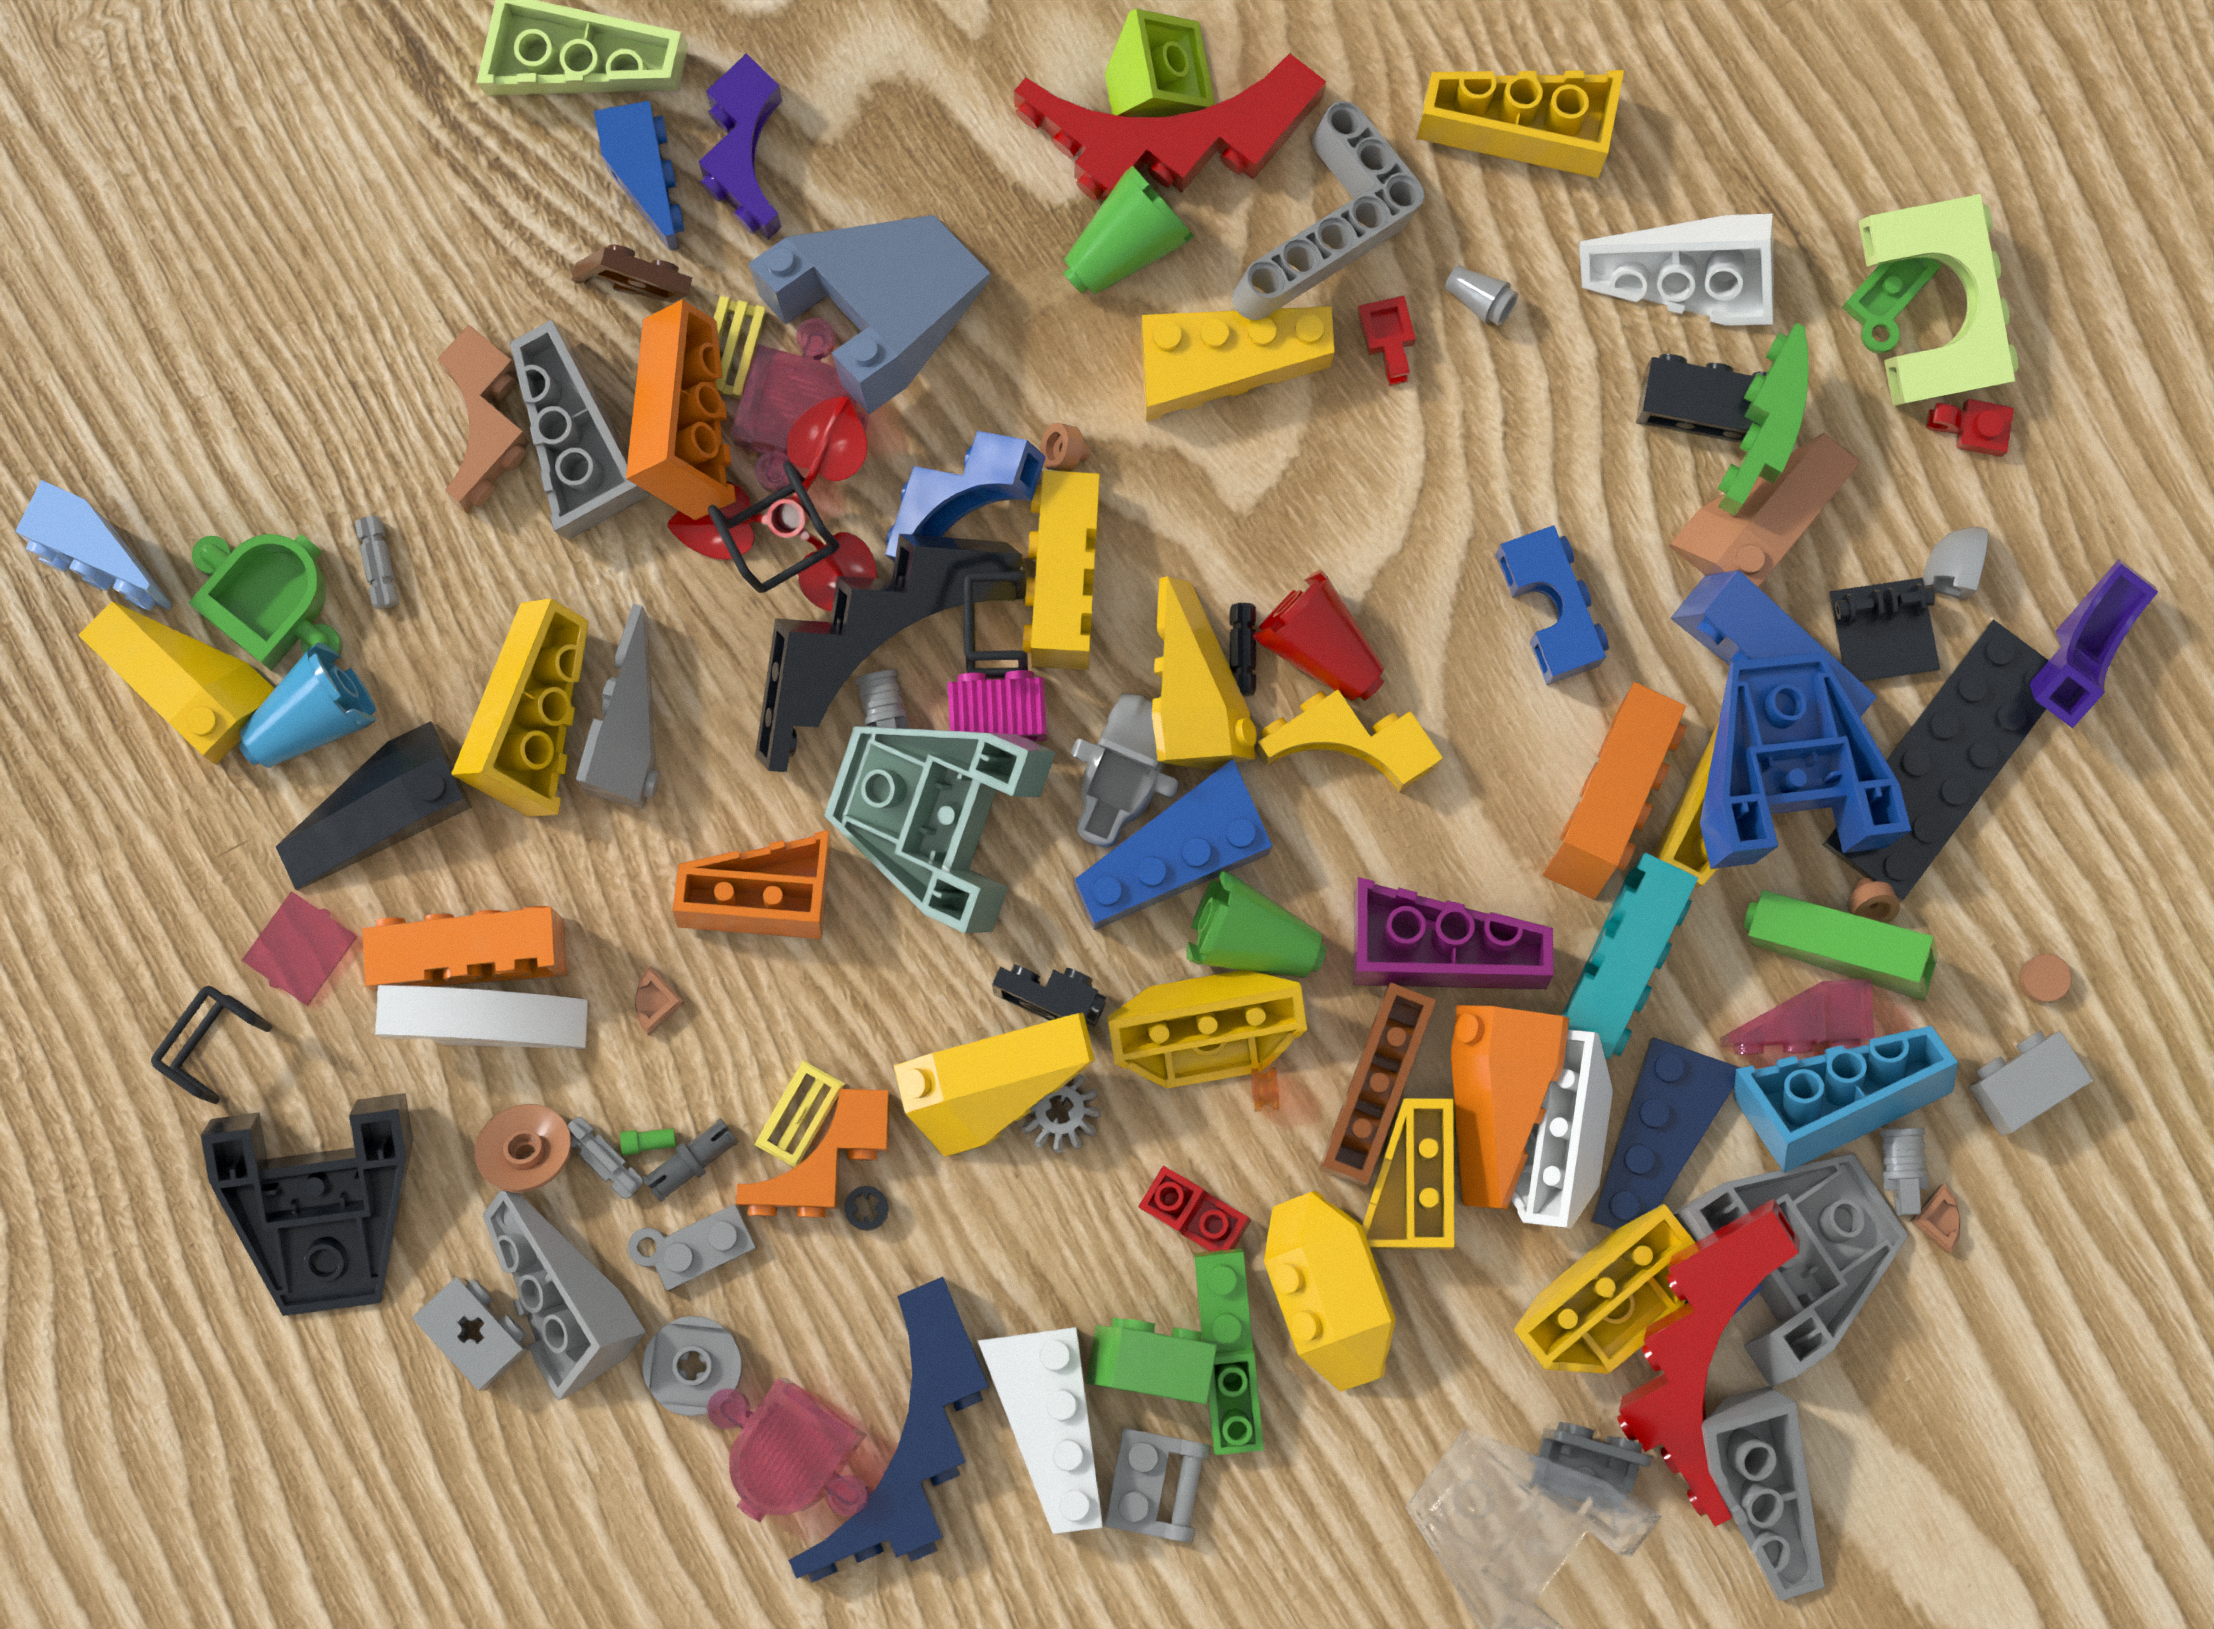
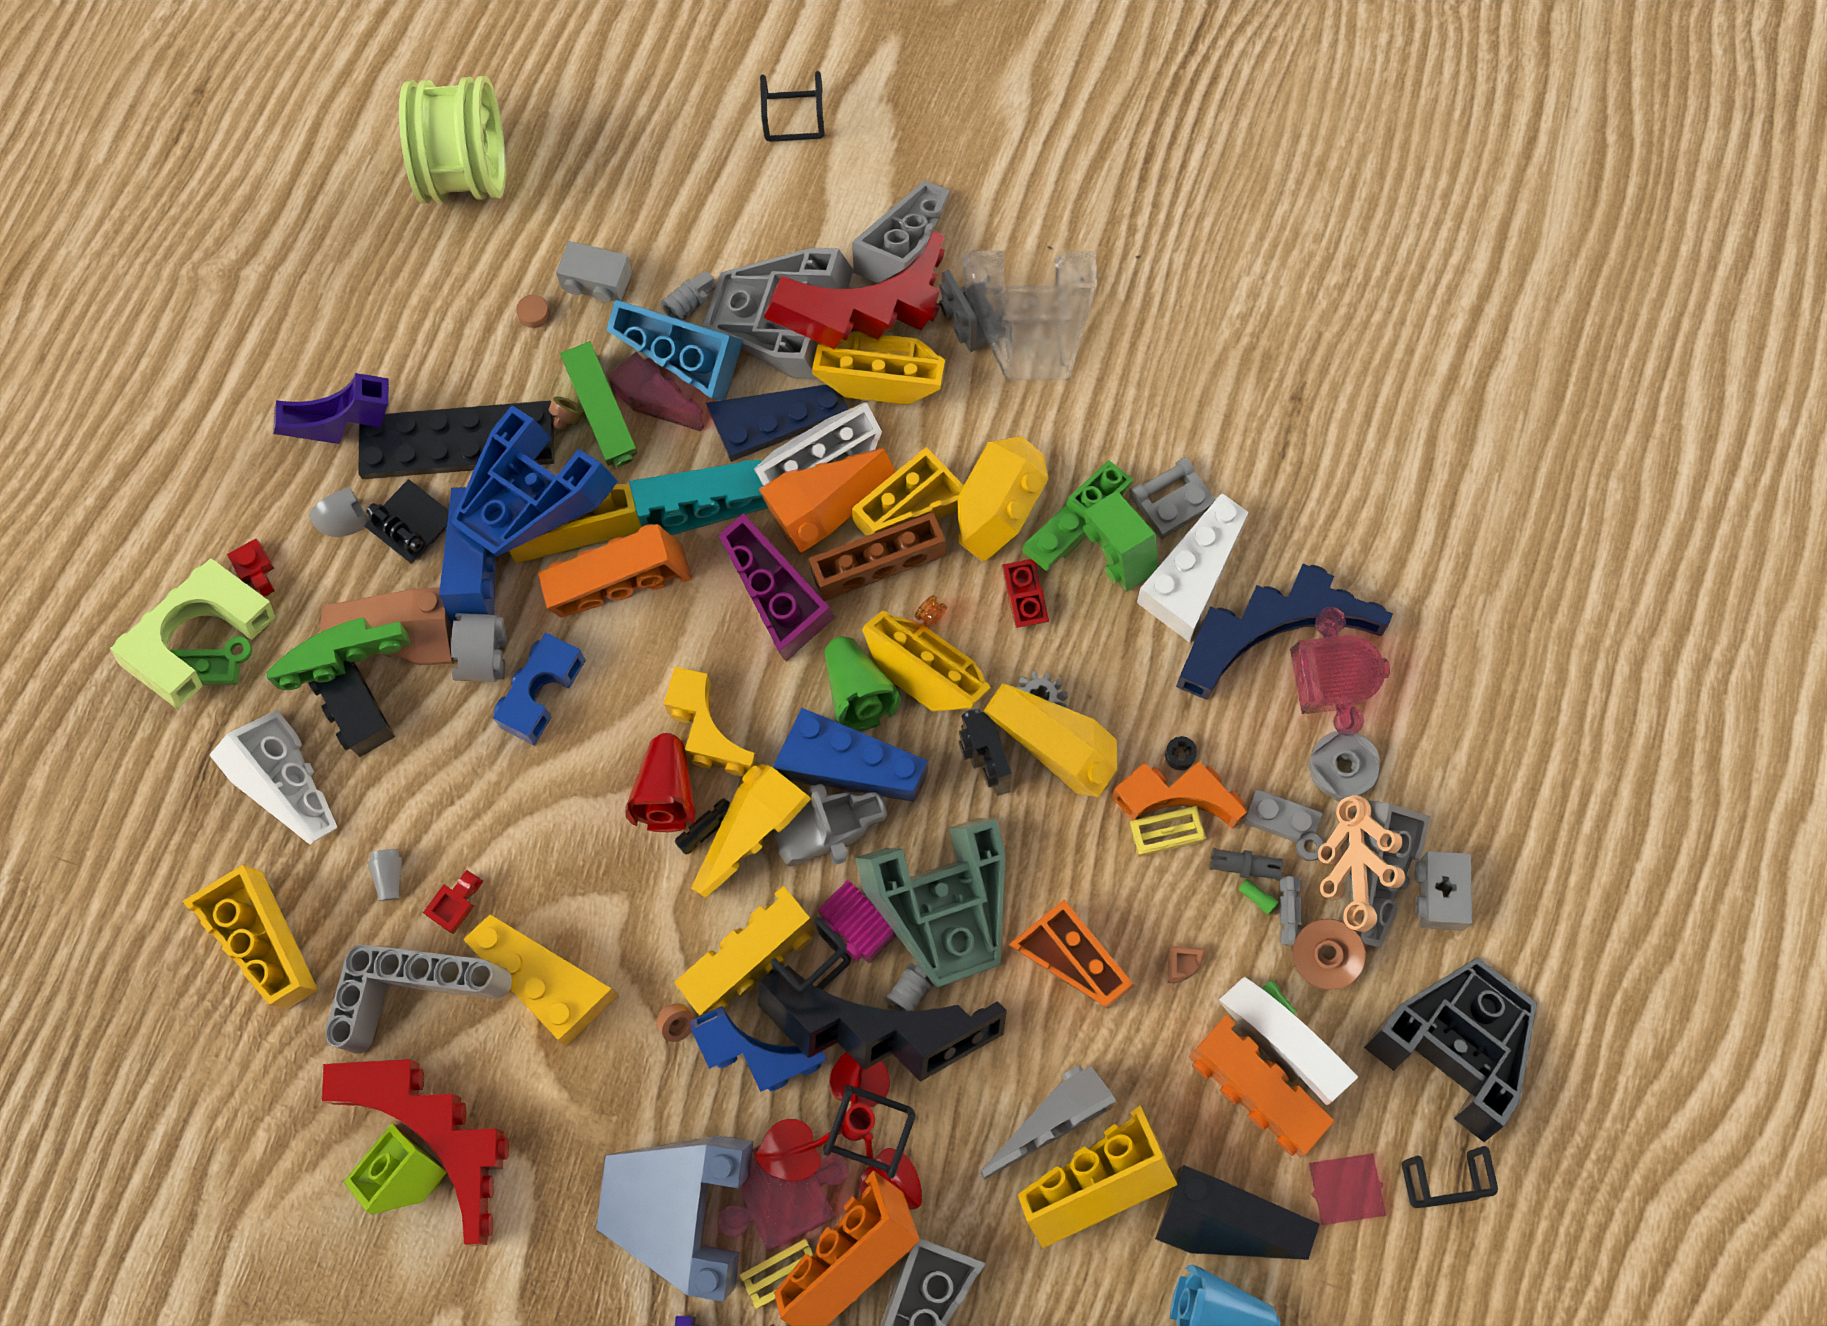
camera: 125 degrees left, 10 degrees down
(543, 1059) = (1274, 990): none -> bright green piece
(621, 1302) = (1356, 859): none -> light nougat plant
(1124, 236) = (516, 1097): bright green cone -> none
(1653, 574) = (477, 647): none -> light grey brick
(1940, 1219) = (697, 264): nougat tile -> none
(2068, 1569) = (765, 95): none -> black piece

